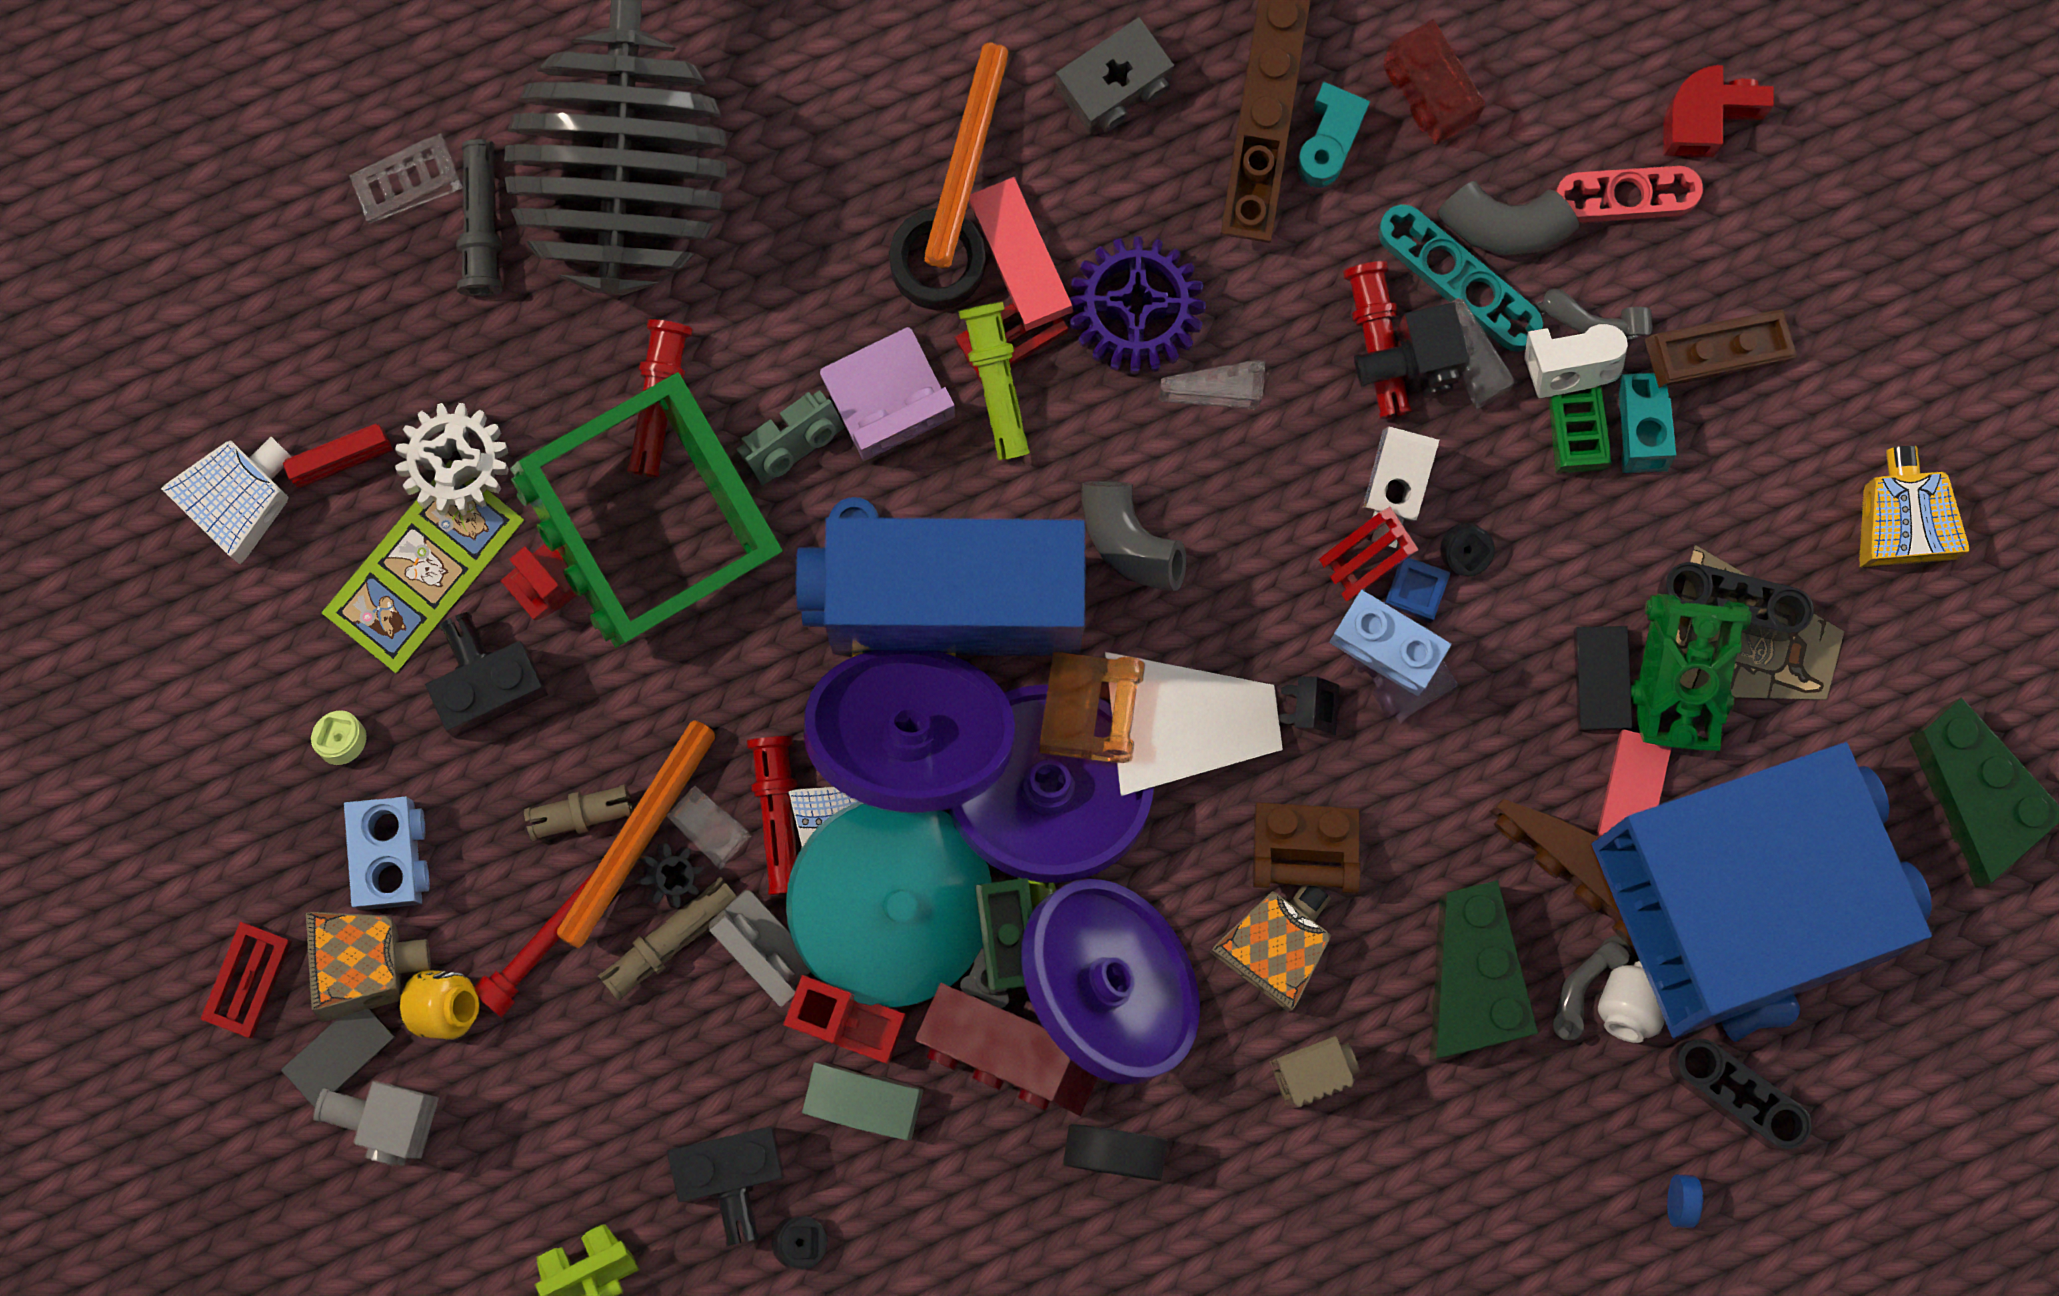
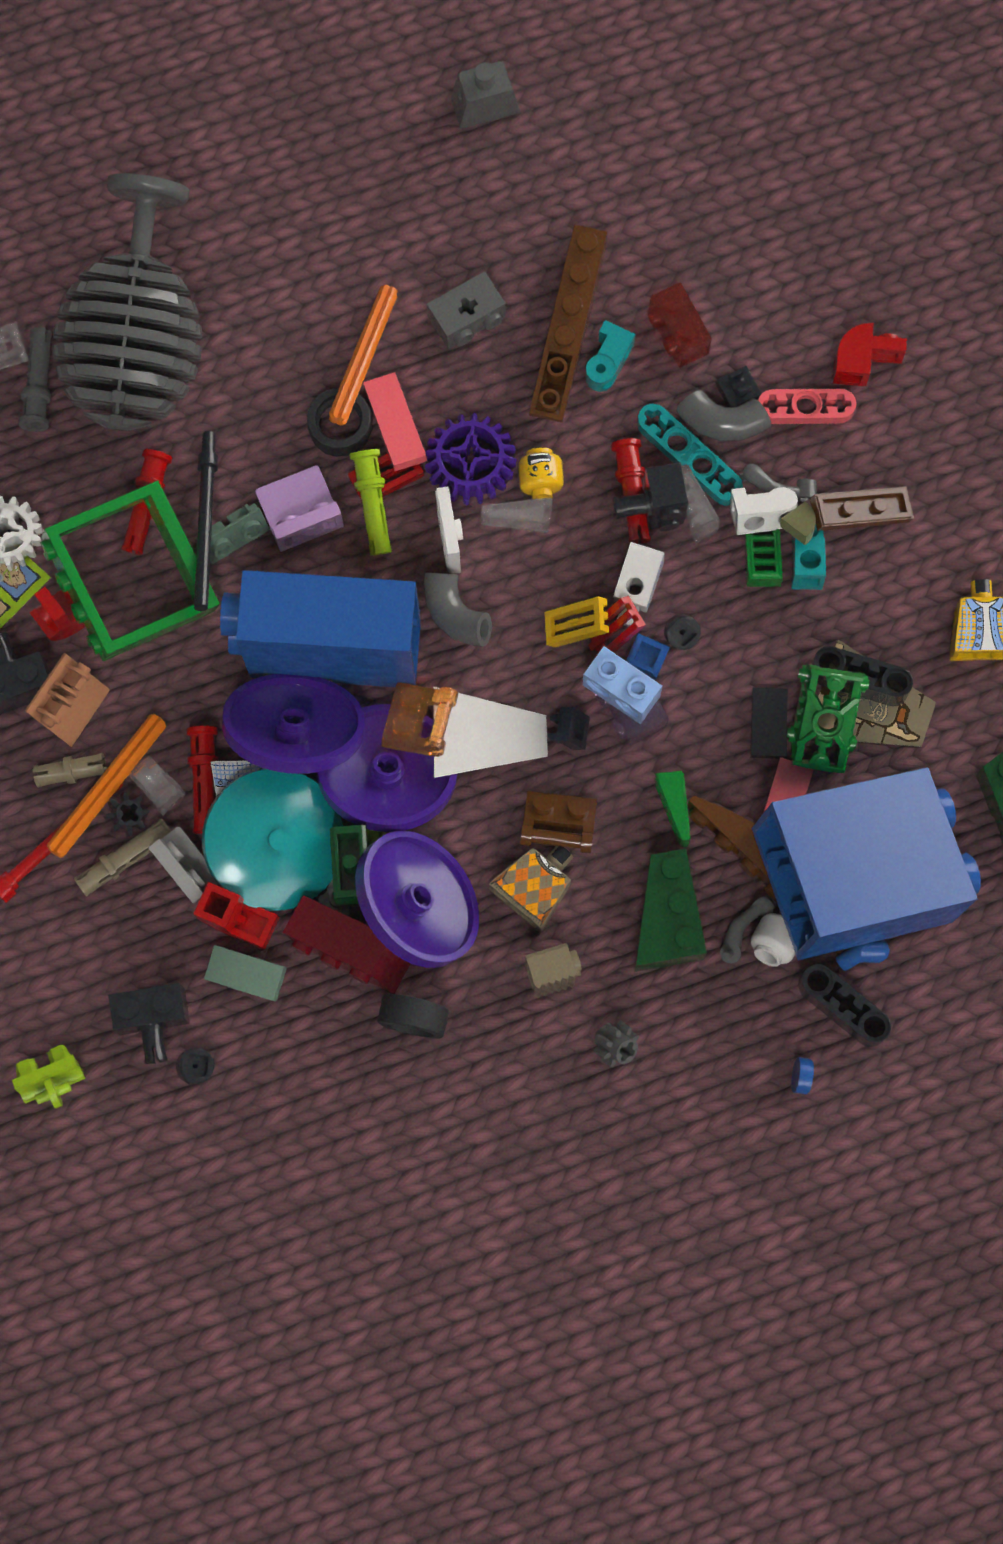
camera: 10 degrees right, 5 degrees down
(568, 709) = (67, 699): none -> nougat hinge
(746, 336) = (207, 466): none -> black bar
(1115, 419) = (450, 530): none -> white plate
(1242, 321) = (540, 473): none -> yellow head
(1346, 540) = (597, 618): none -> yellow tile
(1412, 1172) = (616, 1043): none -> dark grey gear
(1472, 801) = (673, 797): none -> green slope
(1525, 172) = (738, 387): none -> black tile
(1634, 378) = (800, 523): none -> olive tile

